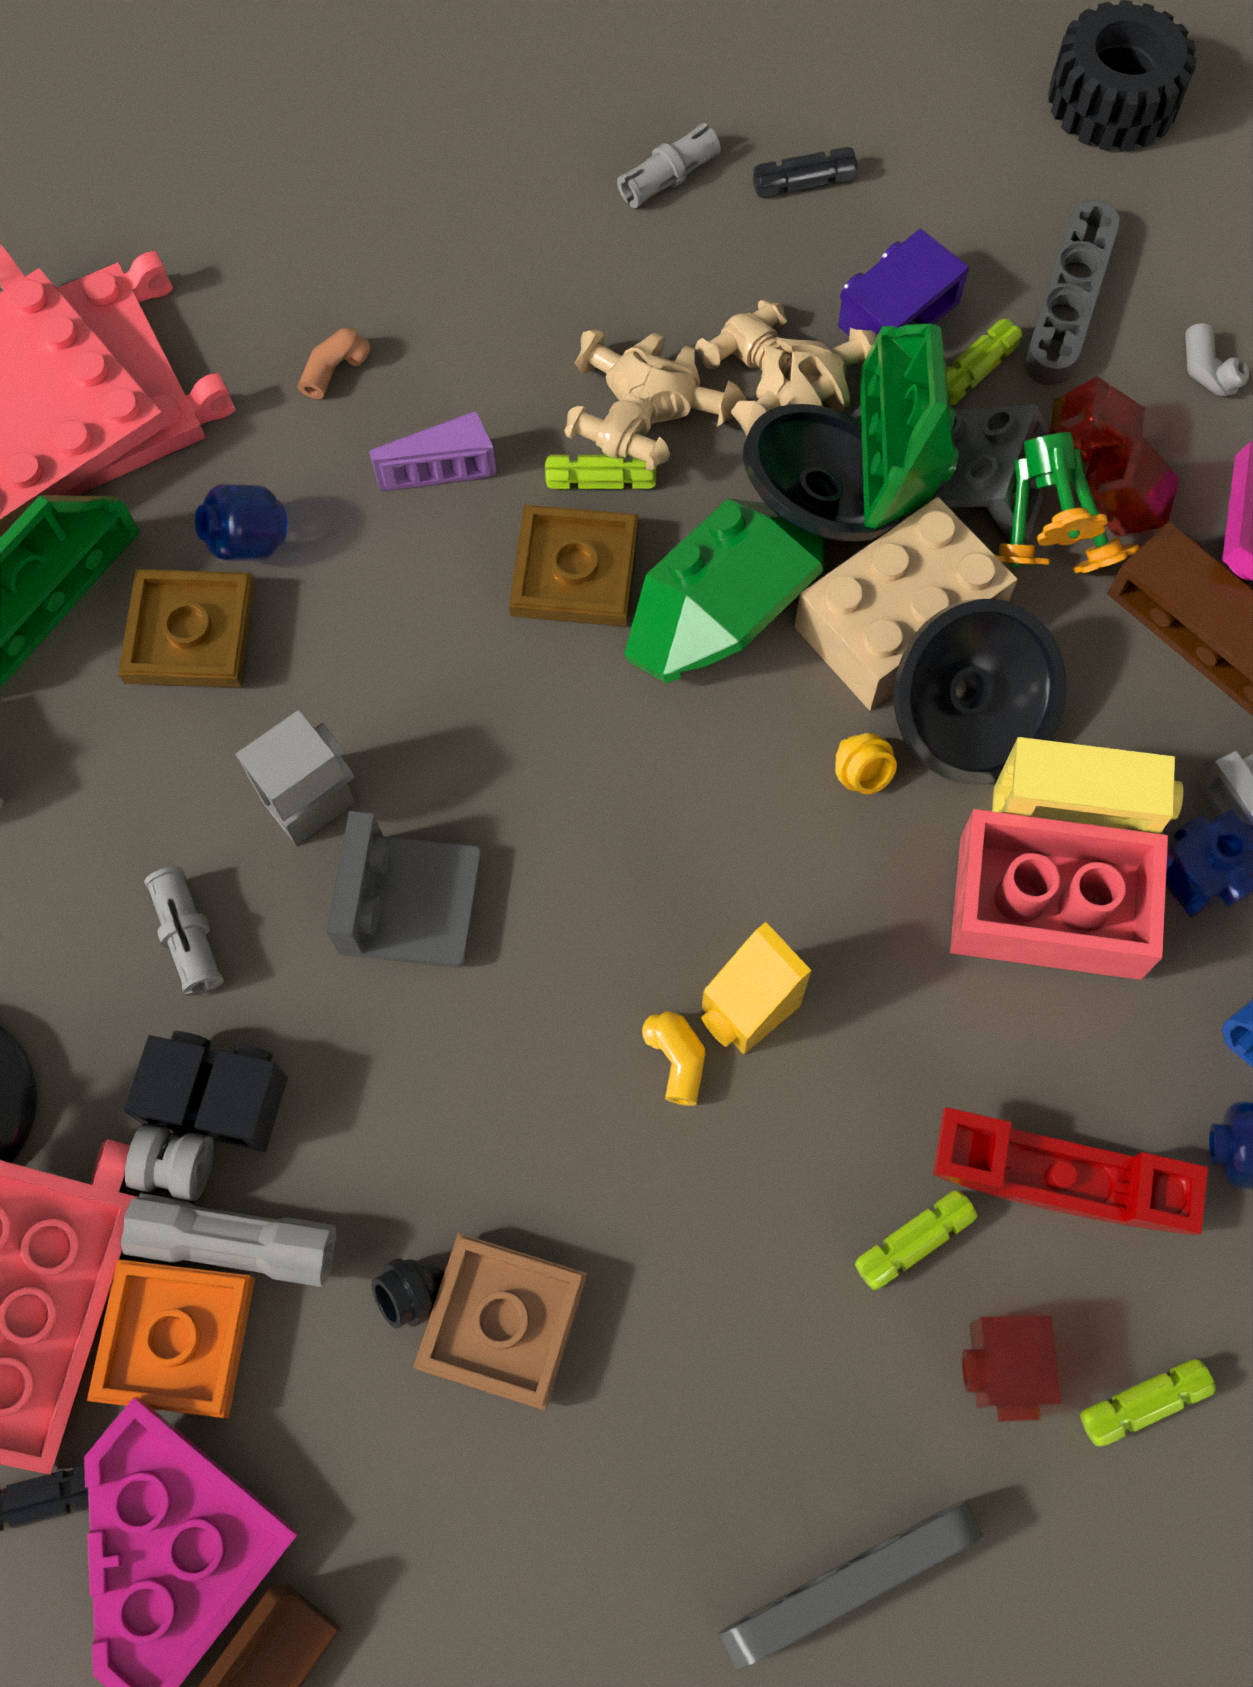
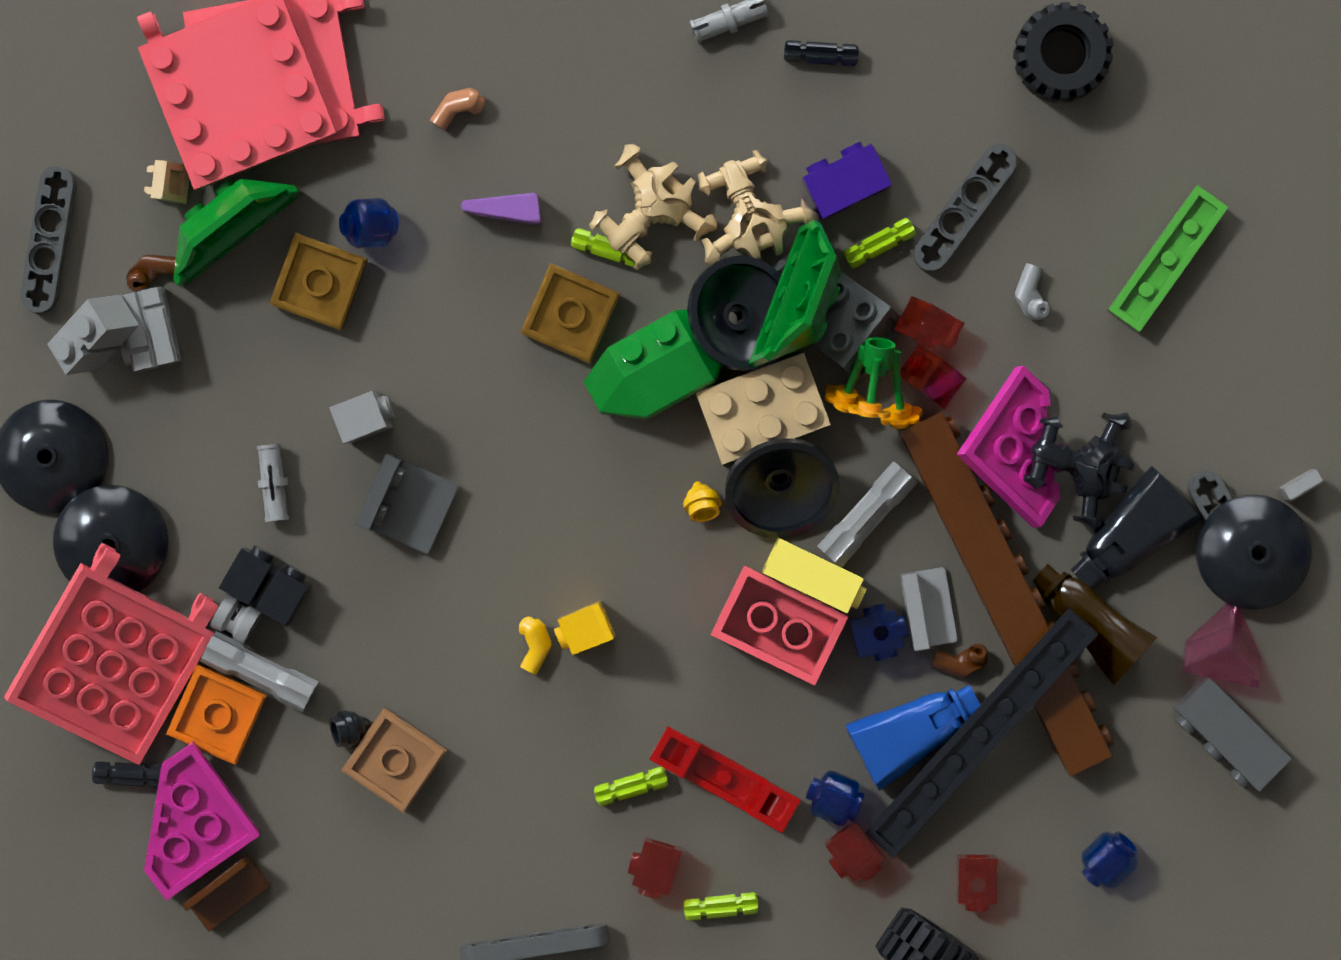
camera: 20 degrees right, 20 degrees up
(1125, 683) = (883, 496): none -> light grey axle

